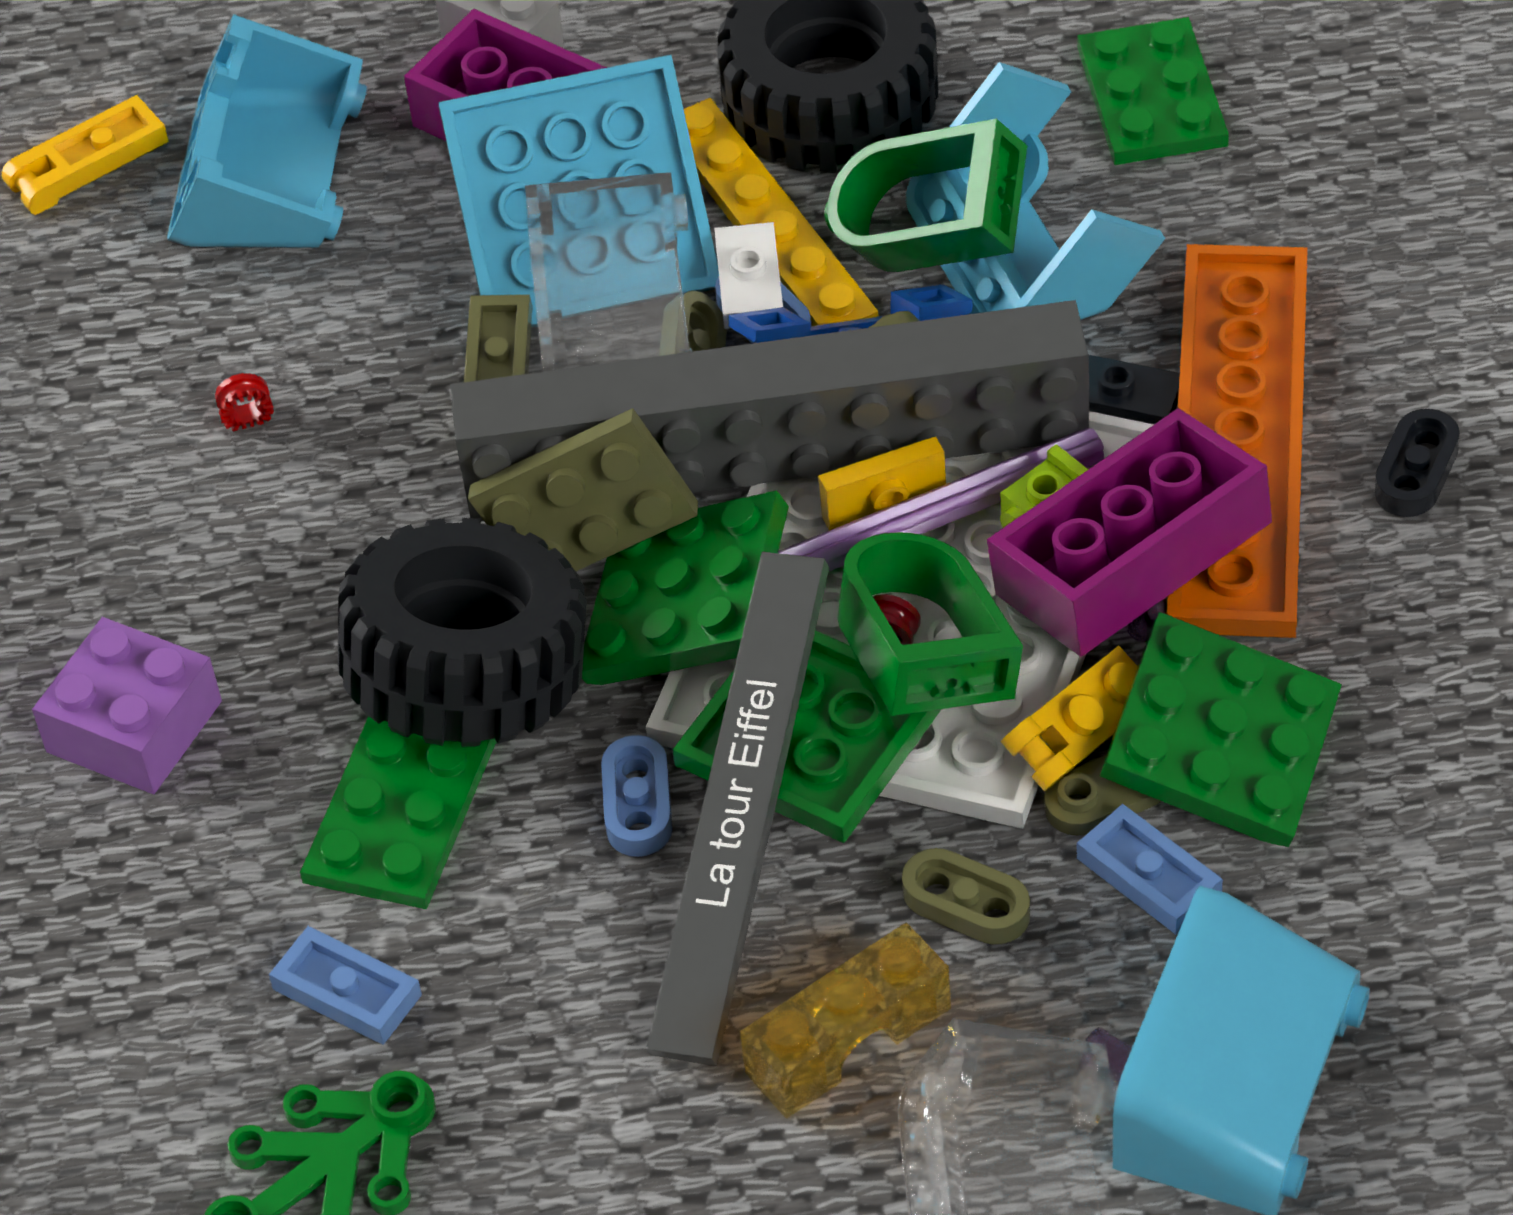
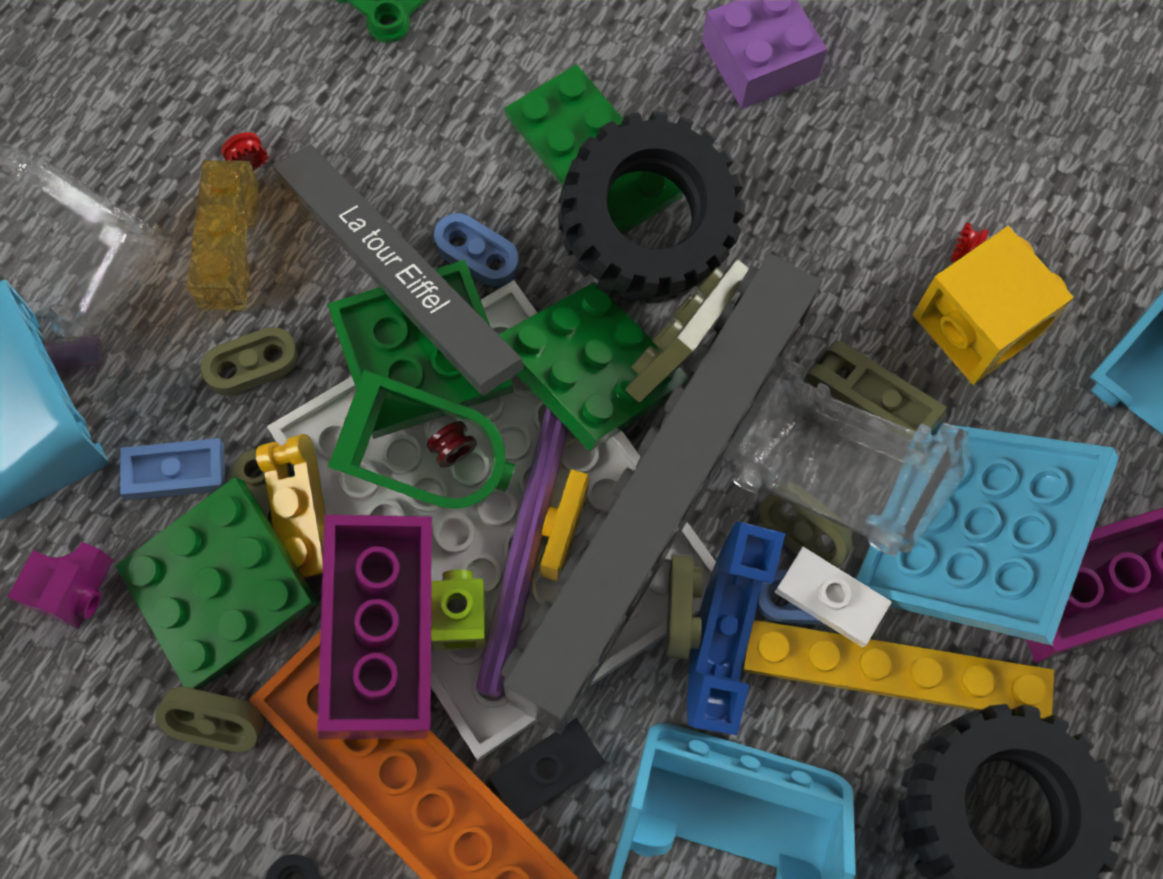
camera: 120 degrees right, 20 degrees up
(320, 322) = (991, 304): none -> yellow brick
(345, 985) = (482, 39): medium blue plate -> none
(722, 1097) = (245, 147): none -> red bush
(991, 201) = (755, 791): green window -> none
(1332, 628) = (209, 719): none -> olive plate
(1358, 847) = (64, 585): none -> magenta brick

